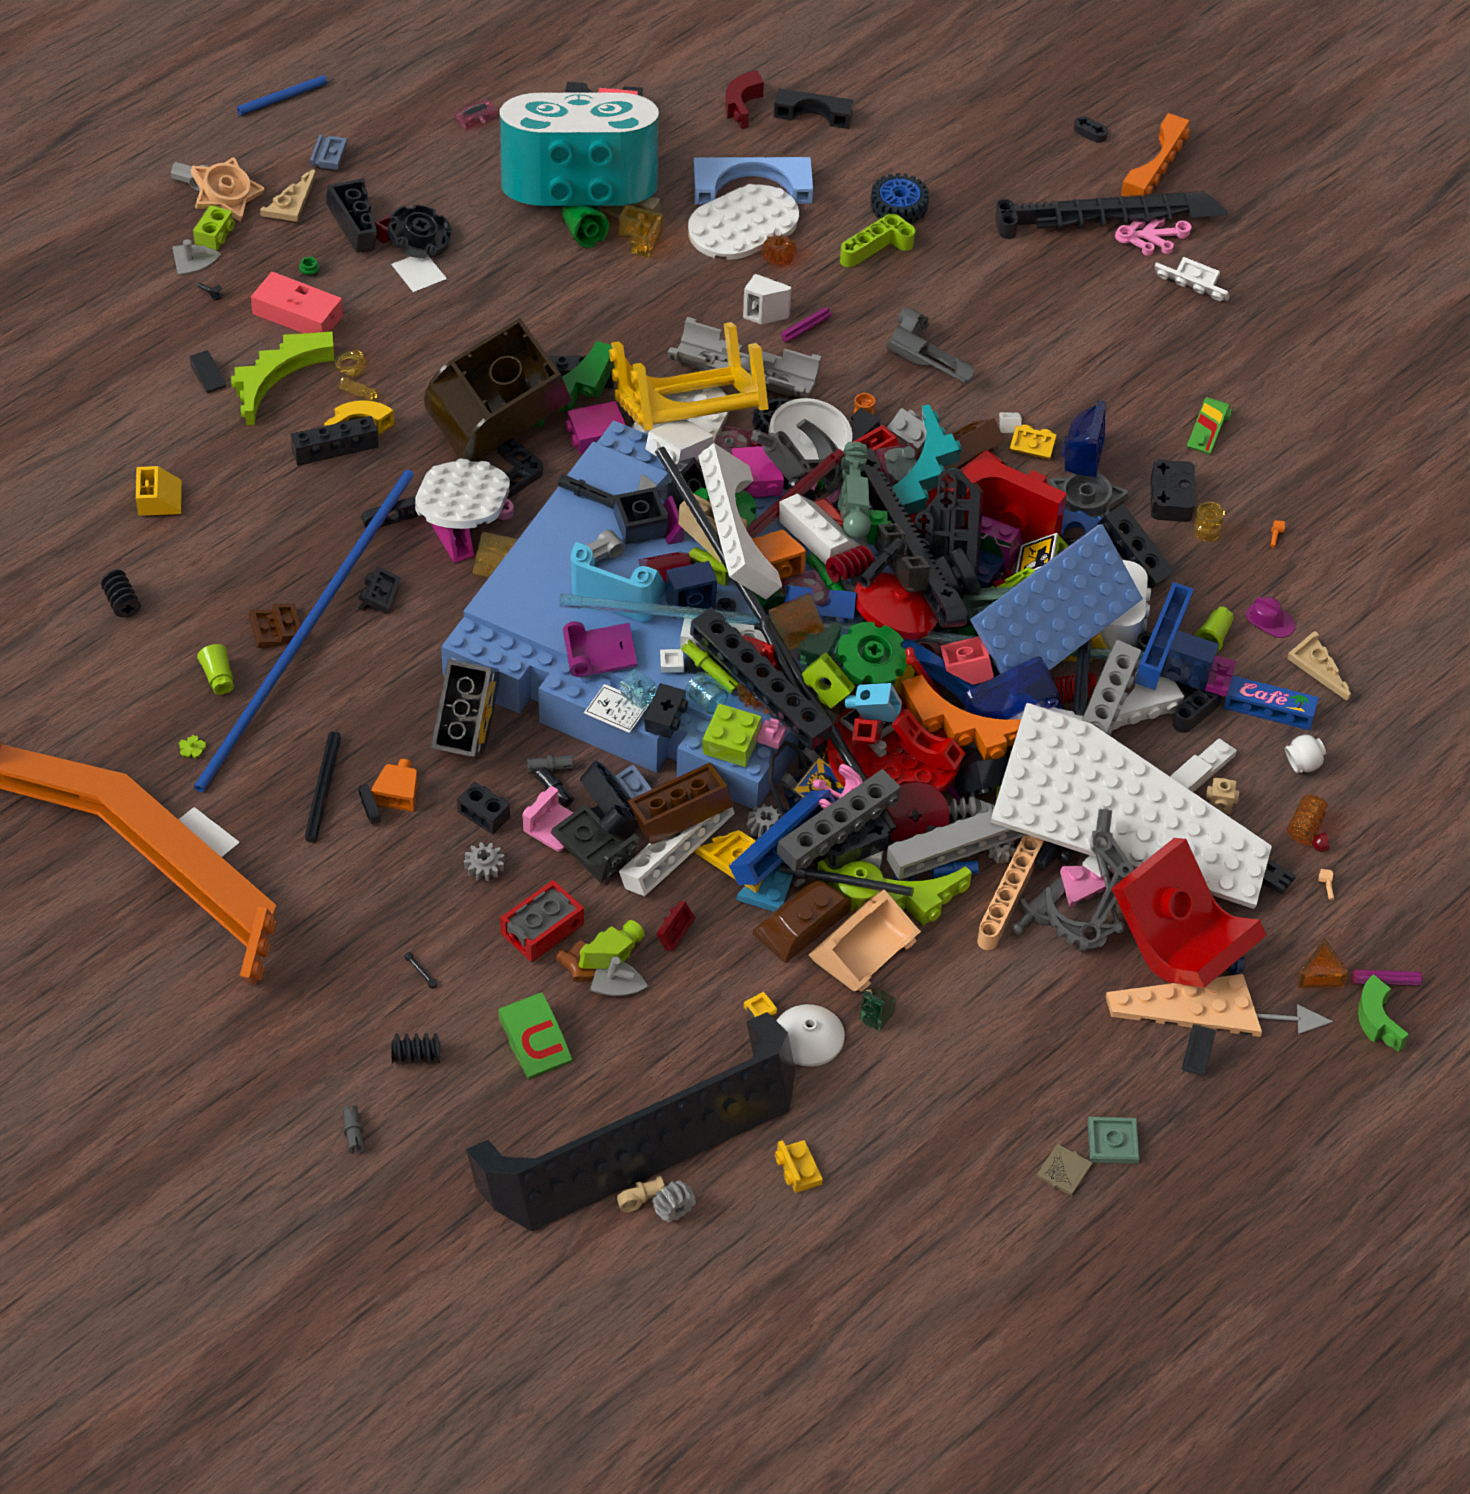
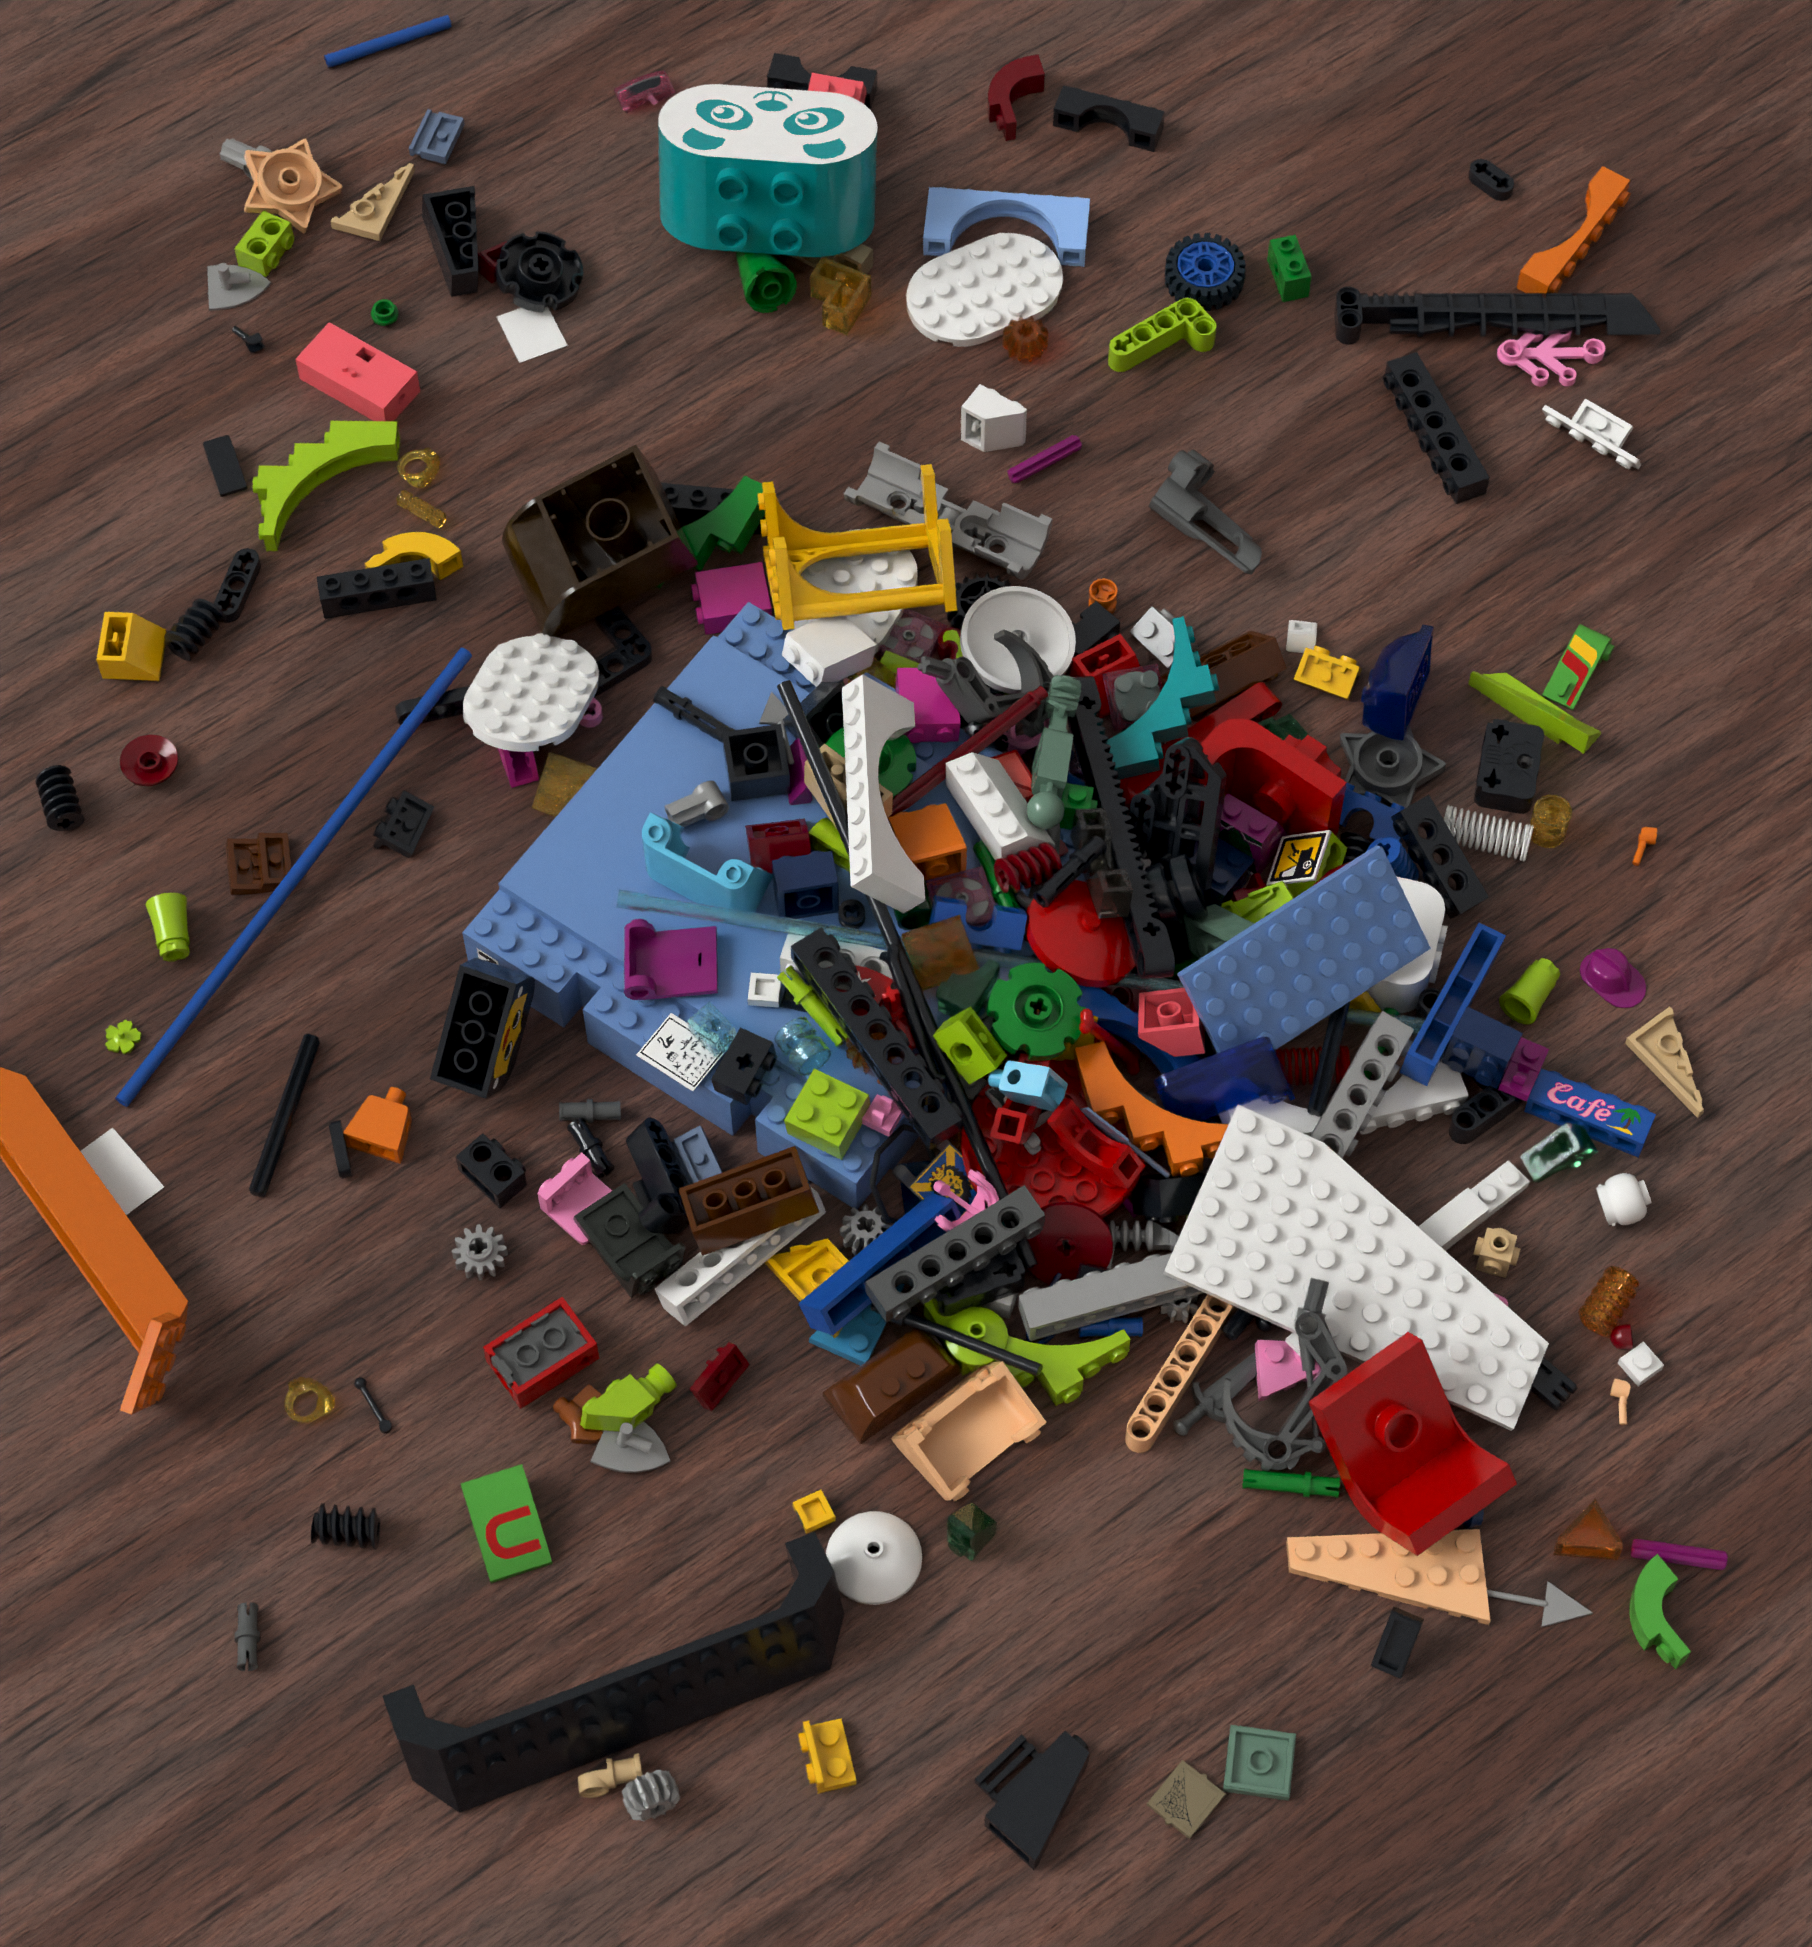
camera: 10 degrees right, 10 degrees up
(183, 564) = (145, 751): none -> dark red dish
(203, 476) = (192, 628): none -> black piece
(231, 455) = (236, 573): none -> black beam
(384, 971) = (324, 1403): none -> clear yellow piece
(940, 731) = (1117, 1136): none -> sand blue piece
(944, 1148) = (1029, 1750): none -> black tile
(956, 1180) = (1036, 1802): none -> black slope
(959, 192) = (1289, 268): none -> green brick
(1081, 284) = (1435, 428): none -> black brick
(1103, 957) = (1292, 1483): none -> green pin
(1177, 451) = (1534, 709): none -> lime wedge
(1184, 528) = (1525, 837): none -> white piece
(1255, 727) = (1559, 1151): none -> clear green arch
(1336, 859) = (1640, 1364): none -> white plate

